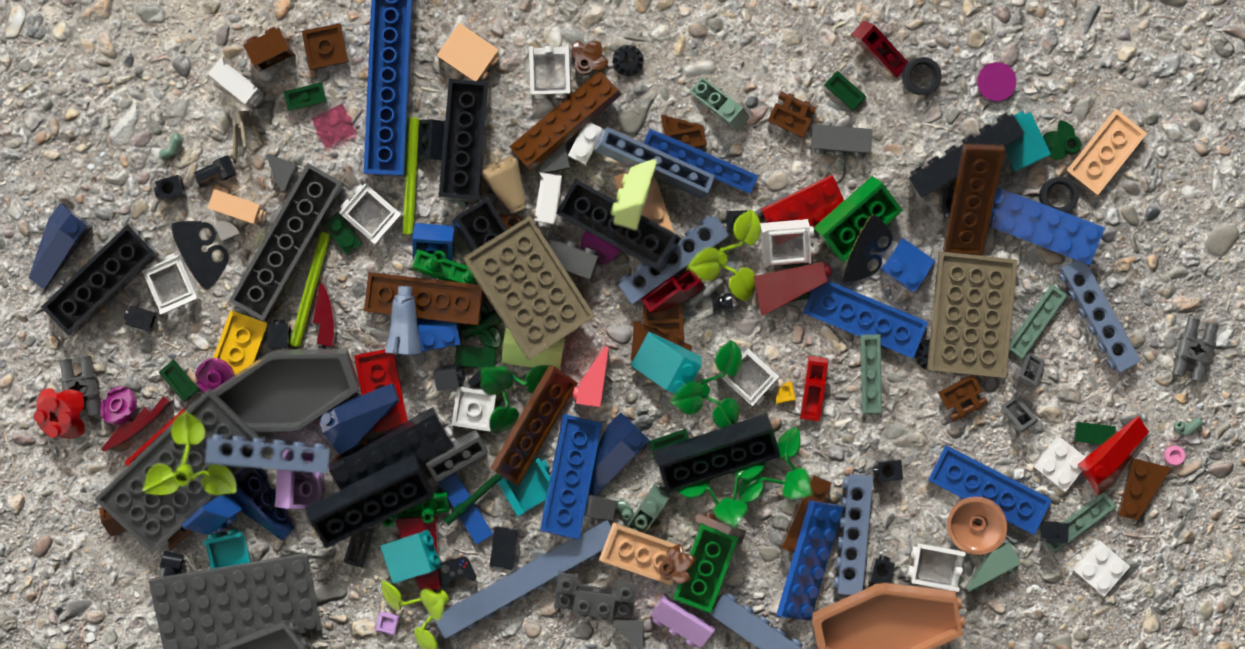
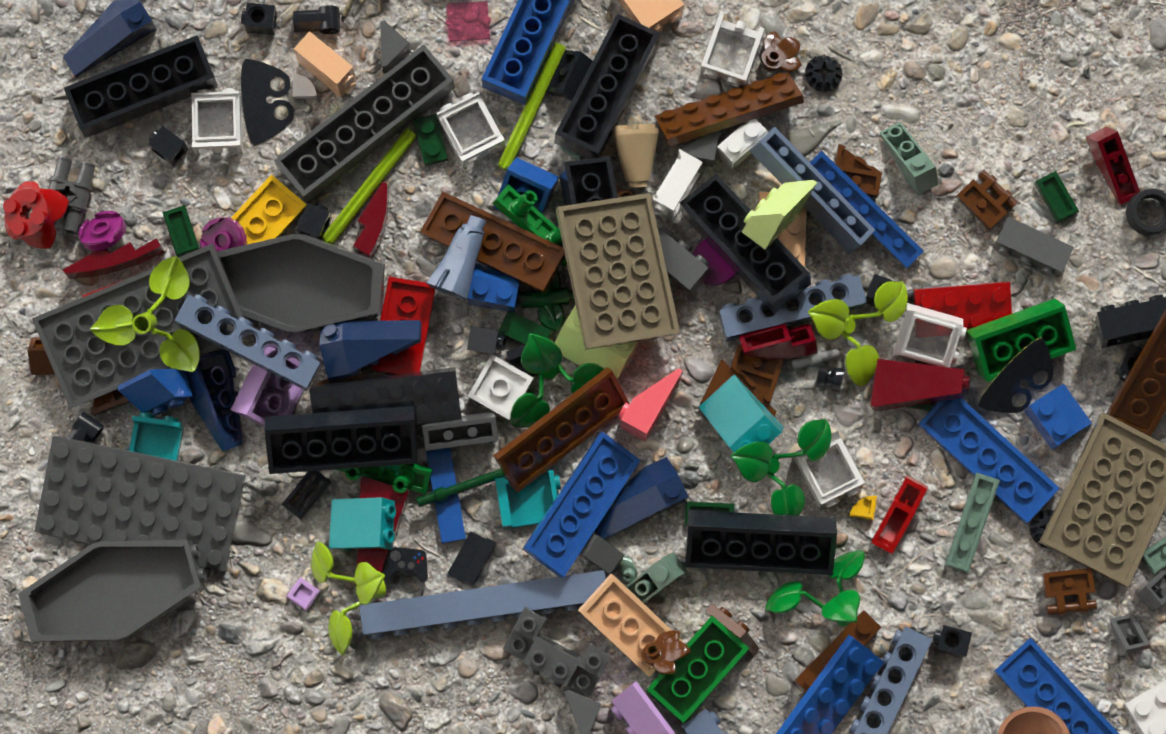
camera: 20 degrees right, 10 degrees down
(728, 509) = (752, 611): green plant -> none

